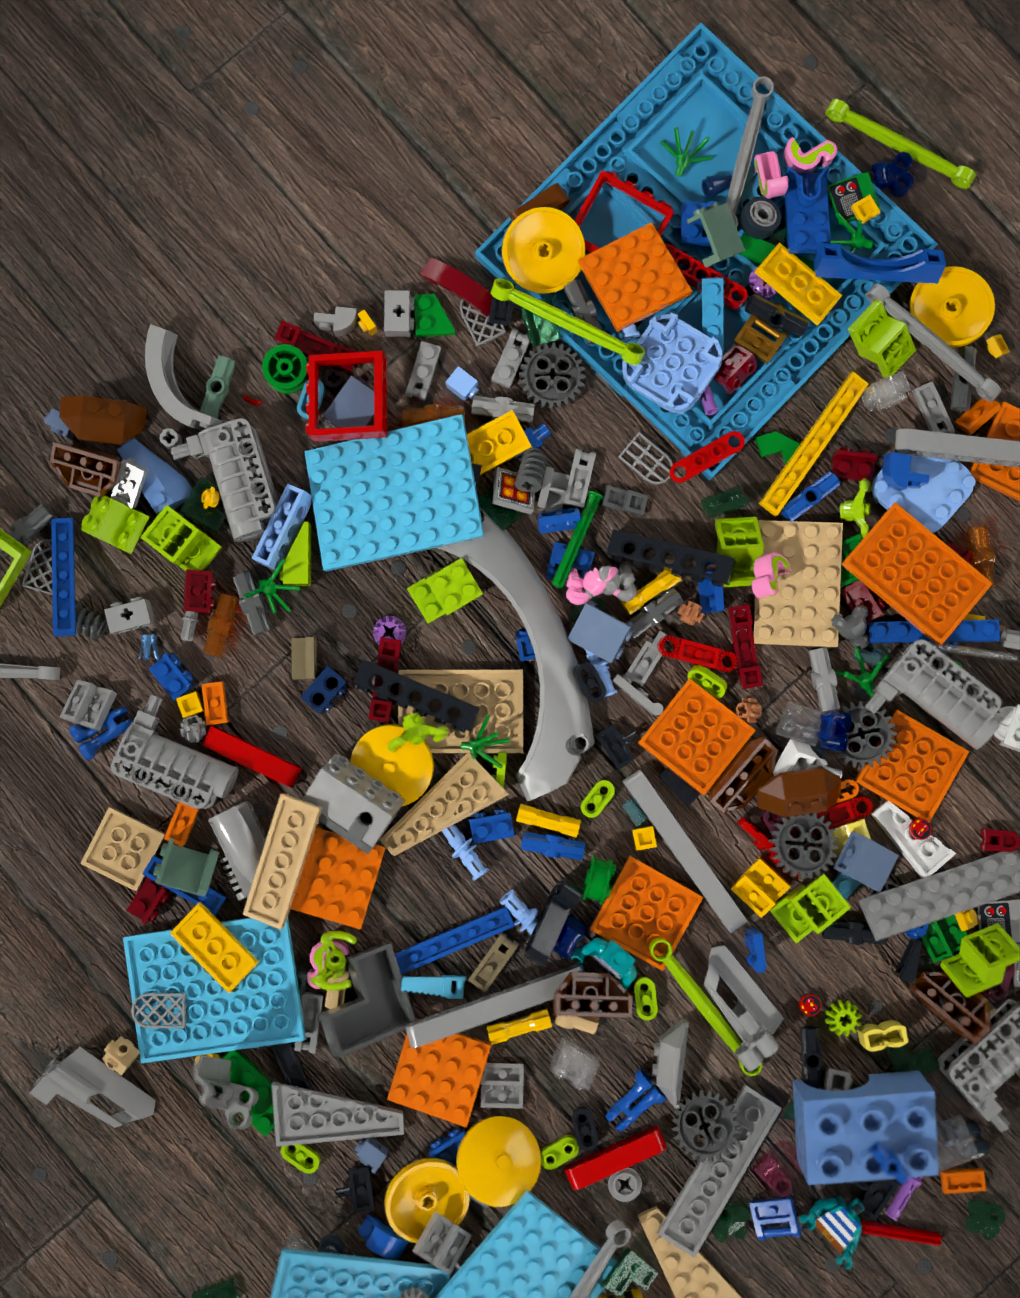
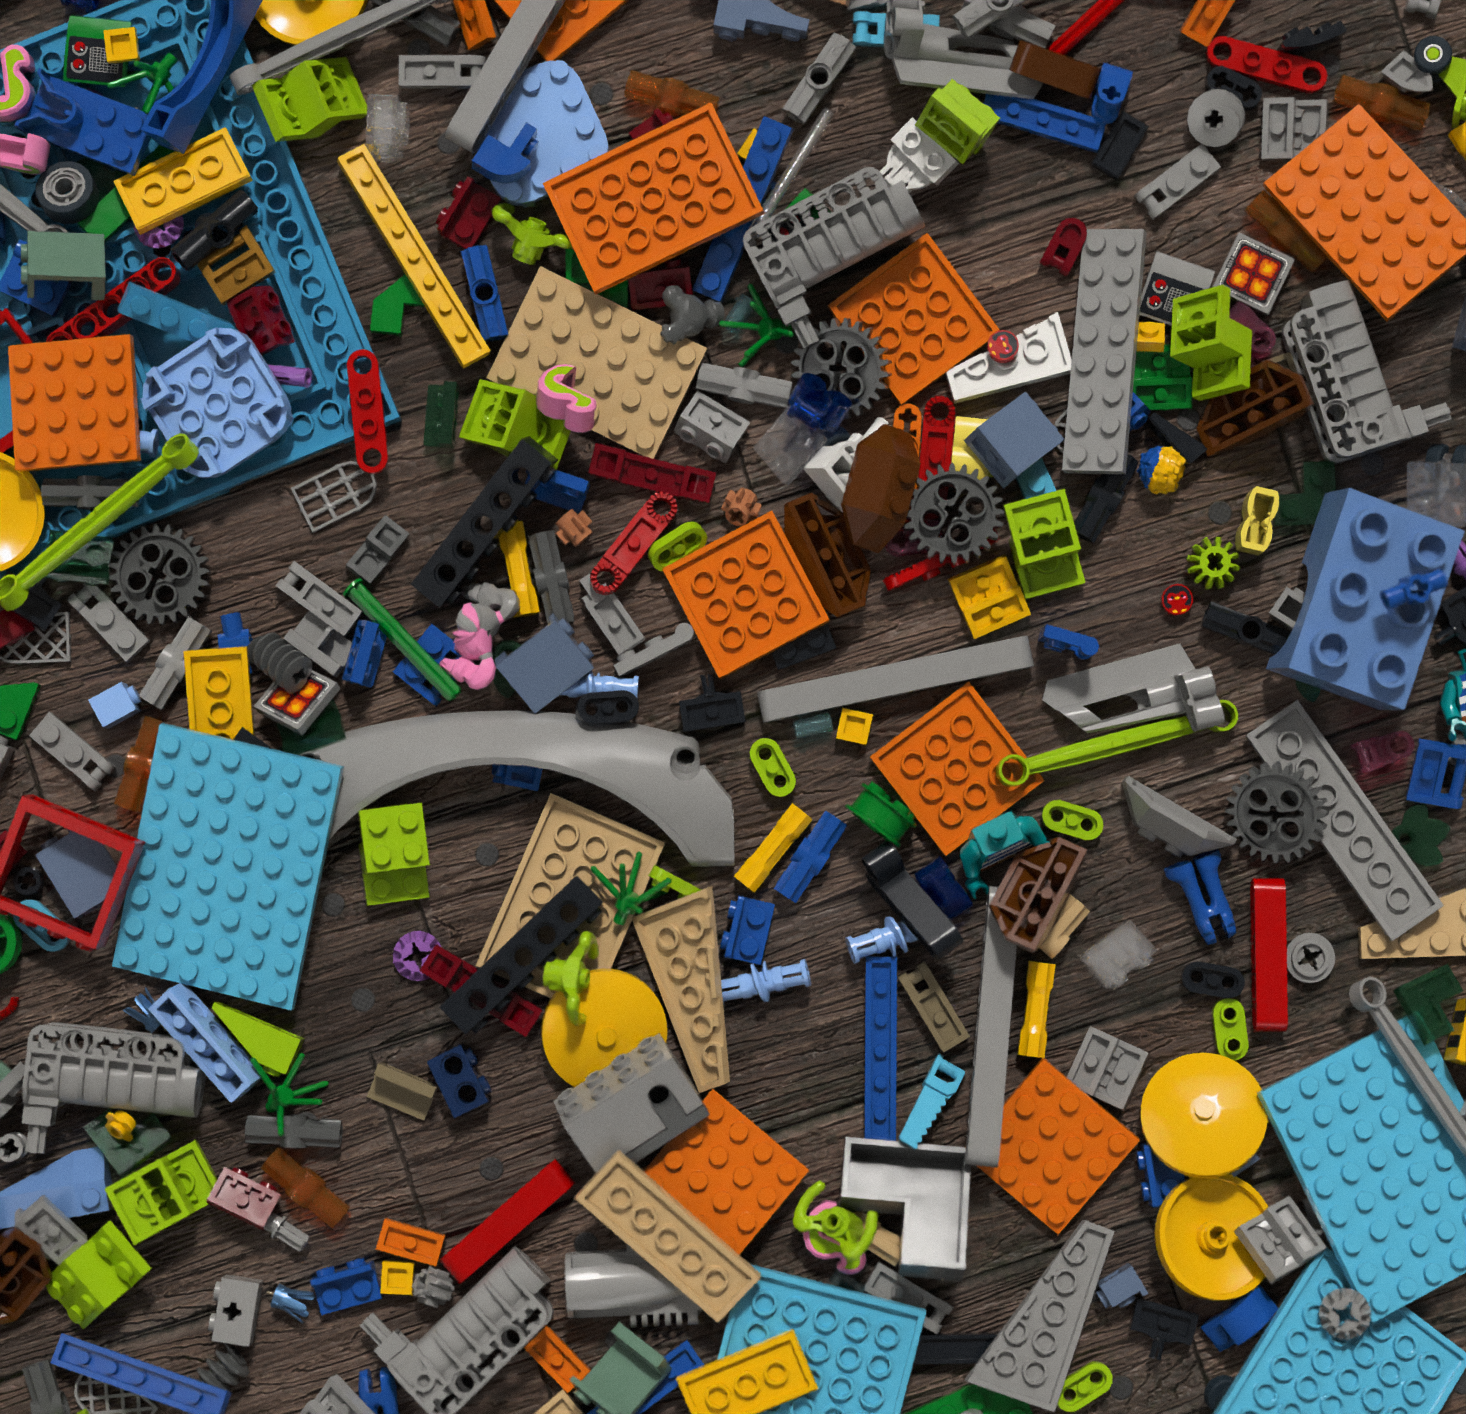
camera: 70 degrees left, 0 degrees up
(280, 488) = (150, 1021): none -> flat silver piece
(789, 670) = (711, 427): none -> light grey bracket
(887, 961) = (1161, 469): none -> yellow piece

